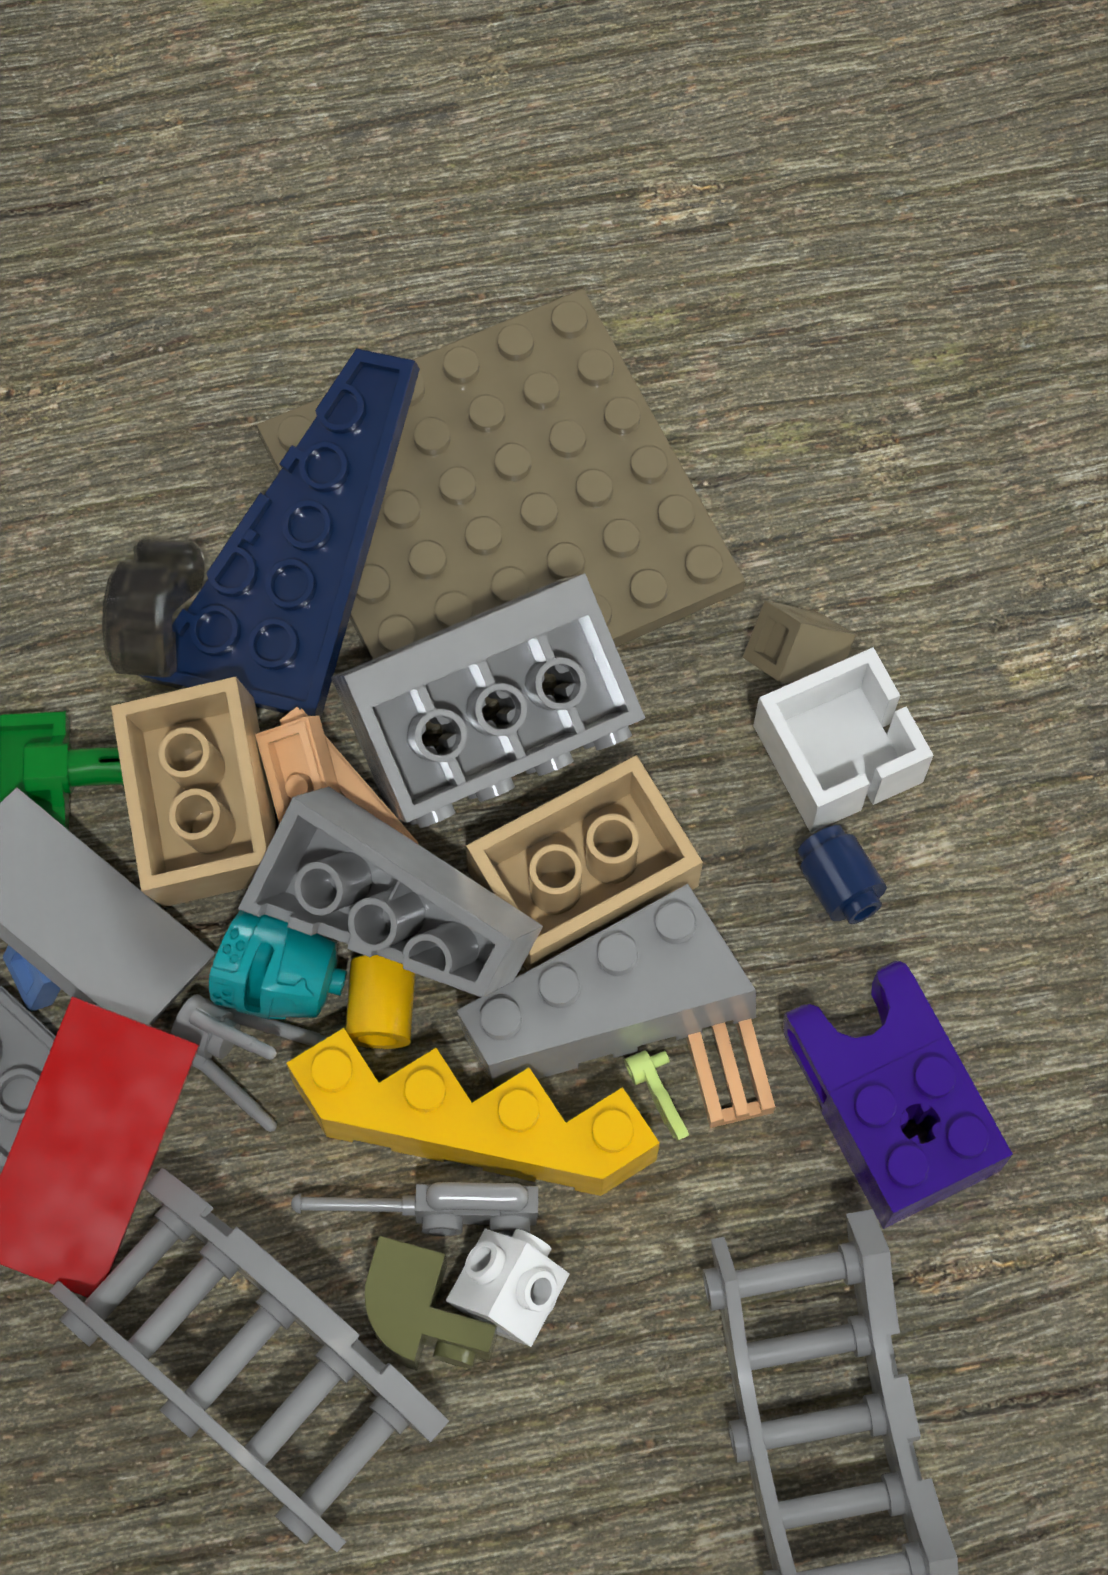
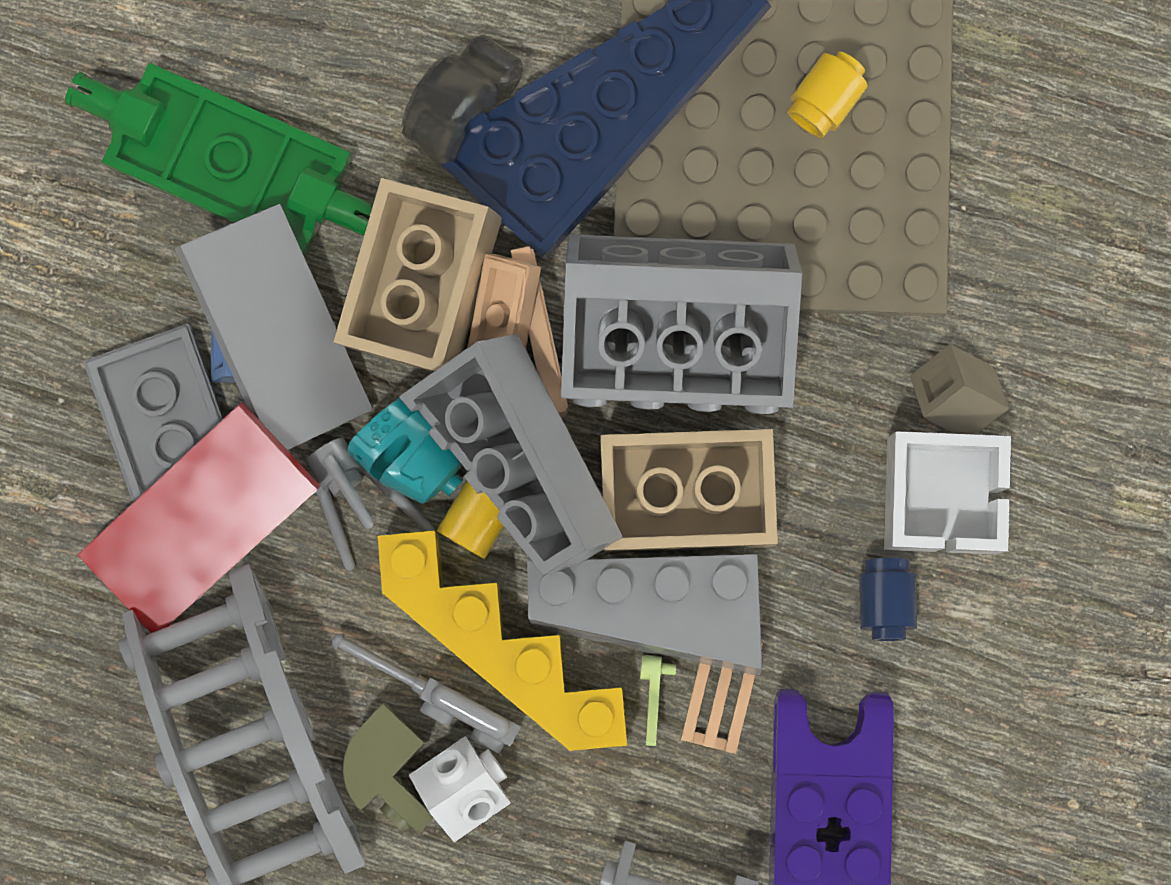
camera: 30 degrees right, 15 degrees up
(517, 428) = (827, 93): none -> yellow brick

